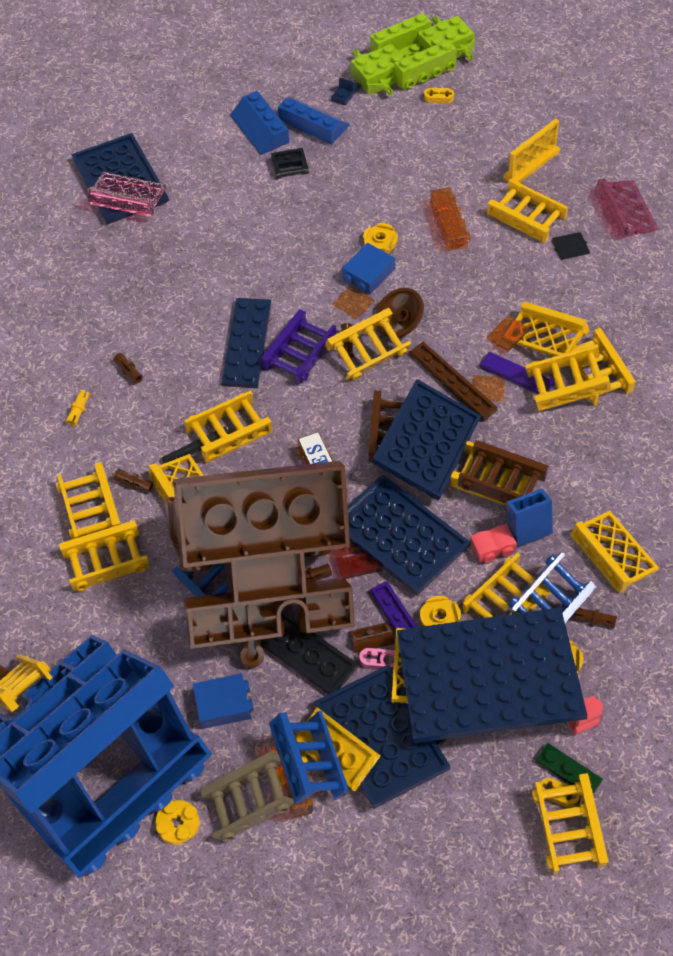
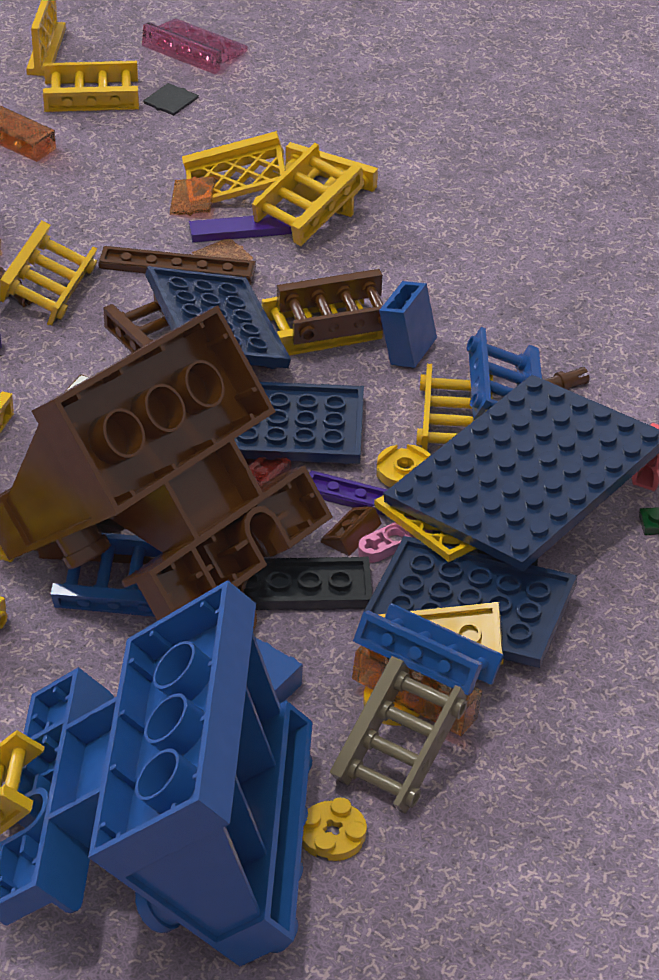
camera: 45 degrees left, 15 degrees down
(406, 309) = (62, 213): reddish brown dish -> none
(493, 543) = (389, 375): coral brick -> none
(603, 556) = (511, 329): yellow fence -> none

